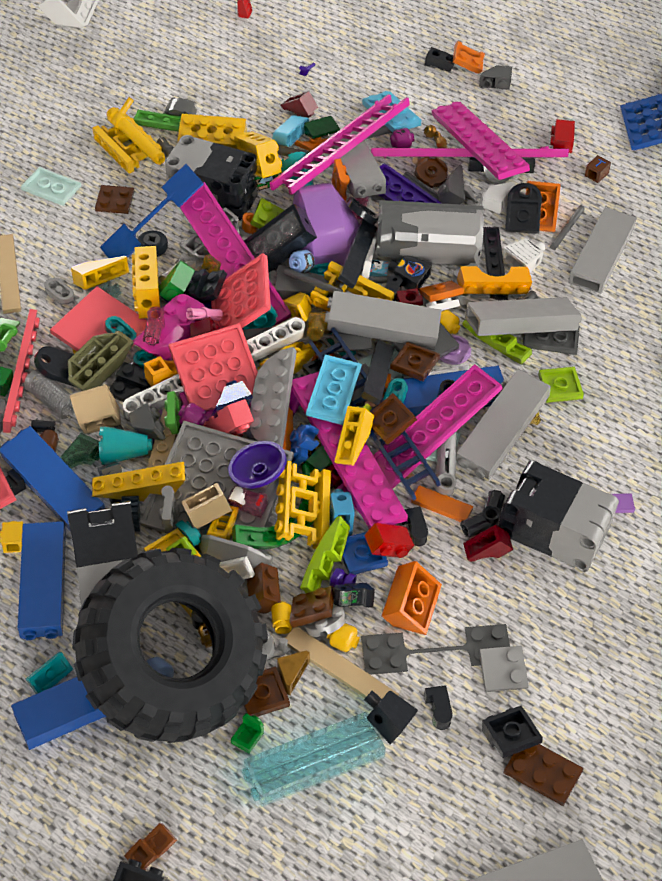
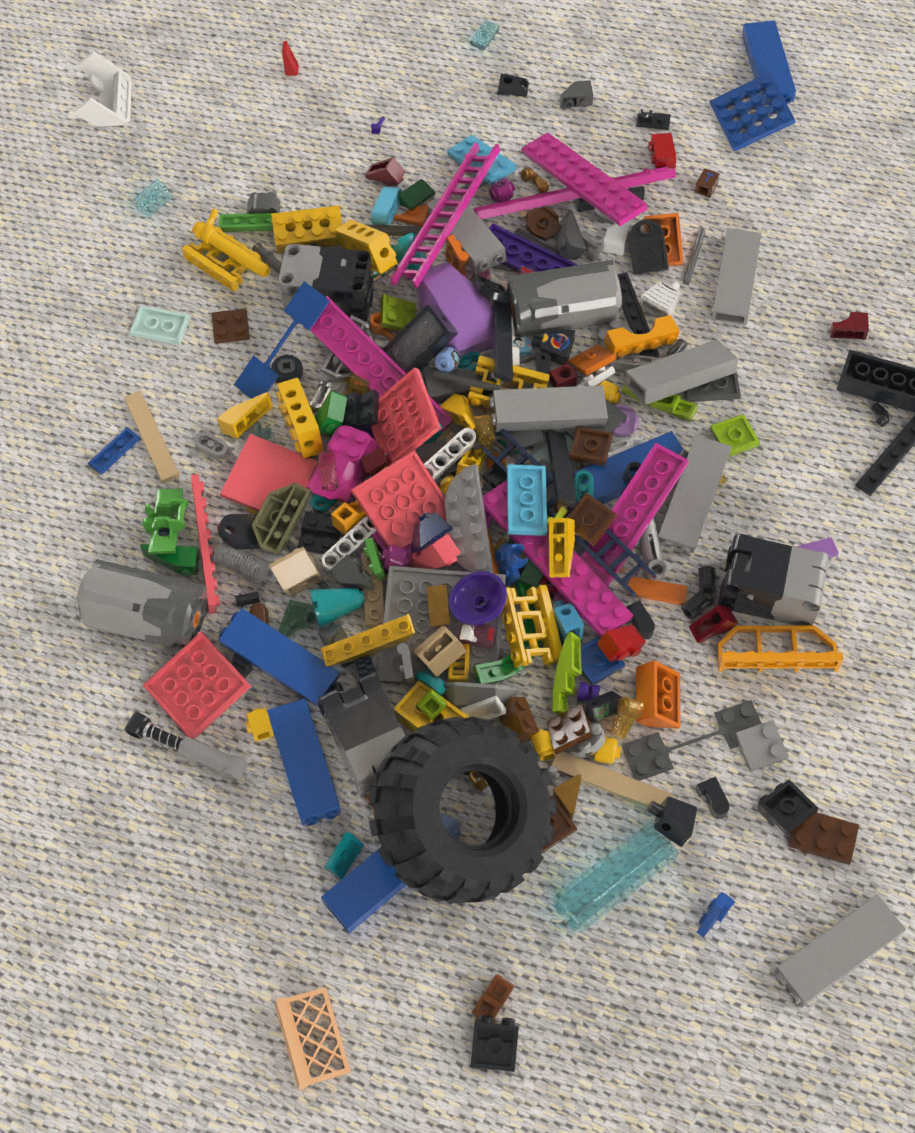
camera: 10 degrees left, 10 degrees up
(83, 86) = (152, 198): none -> clear light blue hinge
(120, 325) = (291, 476): teal plate -> none
(203, 312) = (372, 444): bright pink pin -> none
(218, 465) = (438, 605): none -> pearl gold slope
(248, 733) = (548, 868): green bracket -> none
(376, 603) = (629, 710): none -> clear yellow piece
(407, 814) = (716, 911): none -> blue plate
(427, 17) = (484, 35): none -> clear light blue plate
(468, 58) = (541, 81): orange plate -> none
(546, 591) = (771, 659): none -> light orange plate
(562, 111) = (653, 120): none -> black plate

